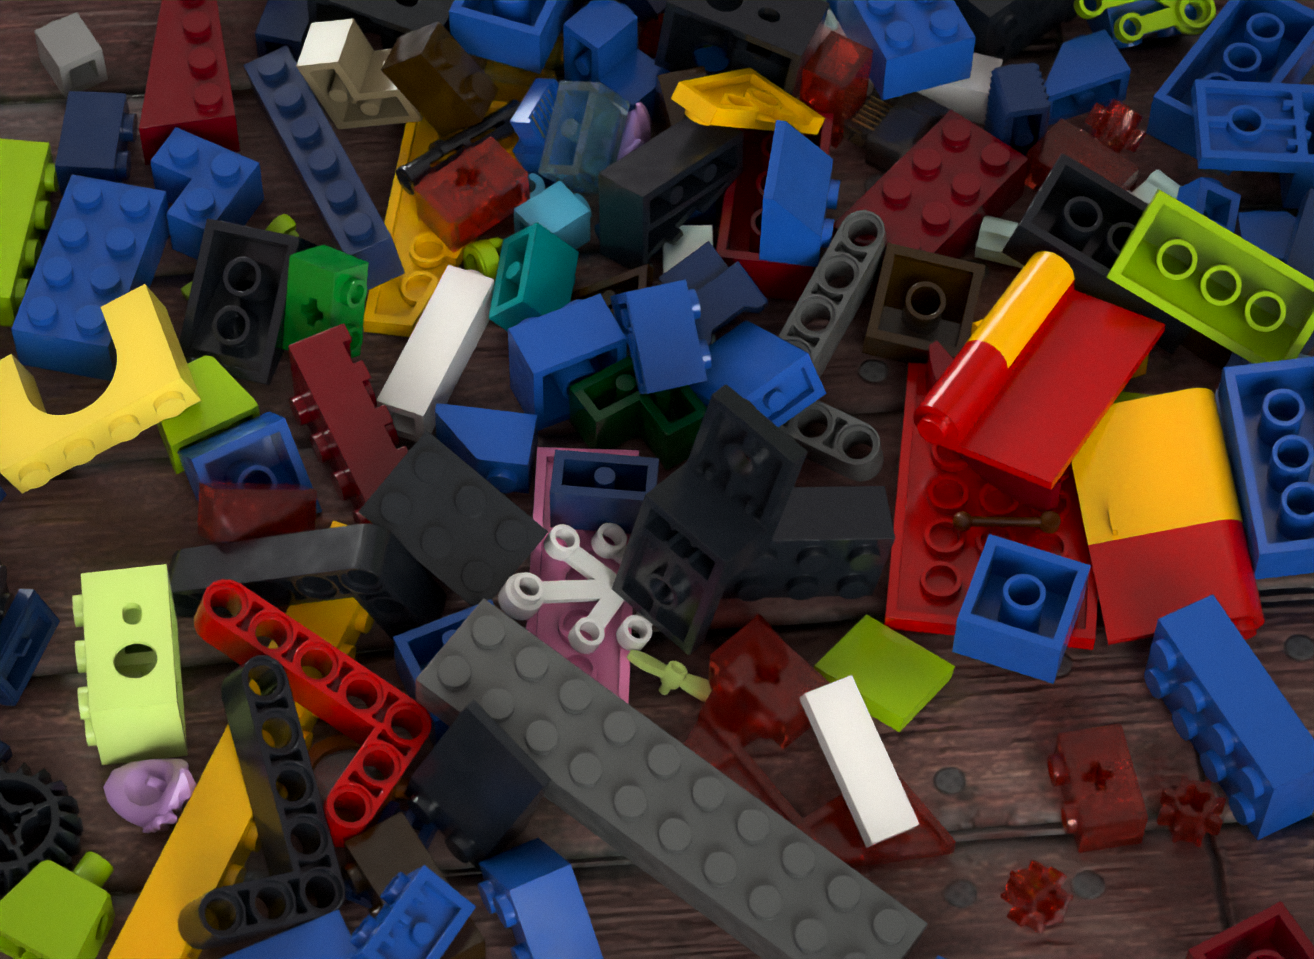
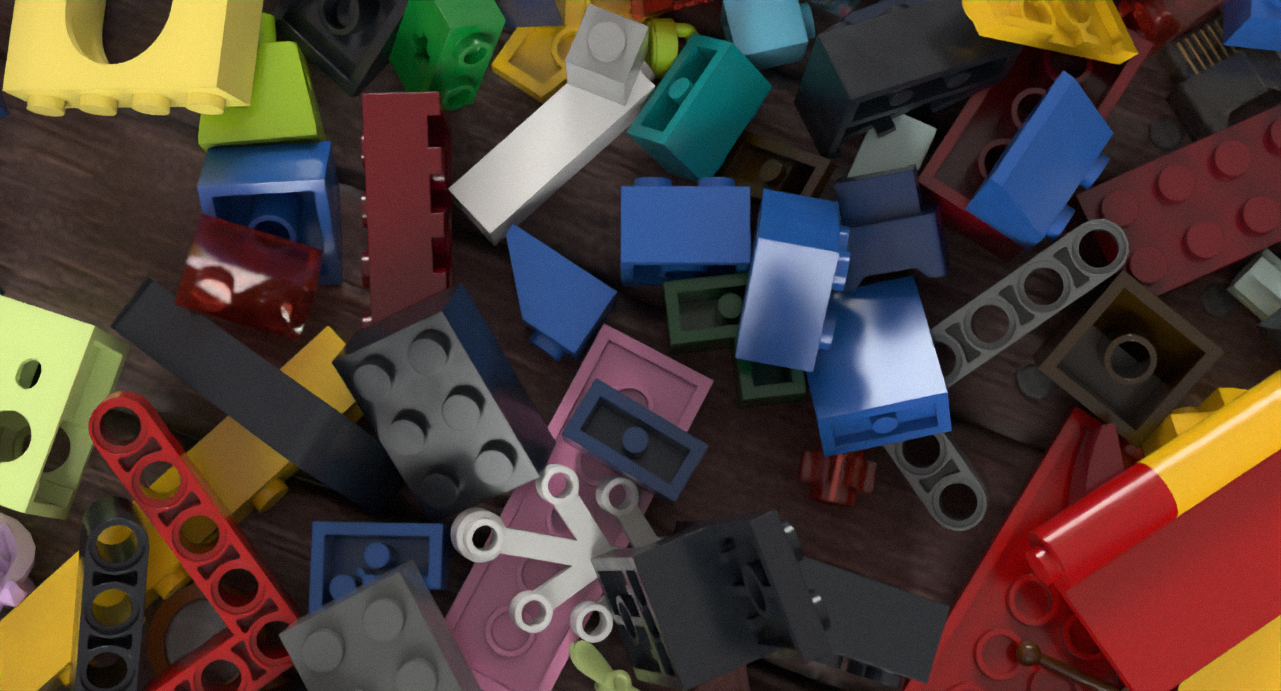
camera: 25 degrees right, 25 degrees up
(451, 262) = (607, 54): none -> light grey brick

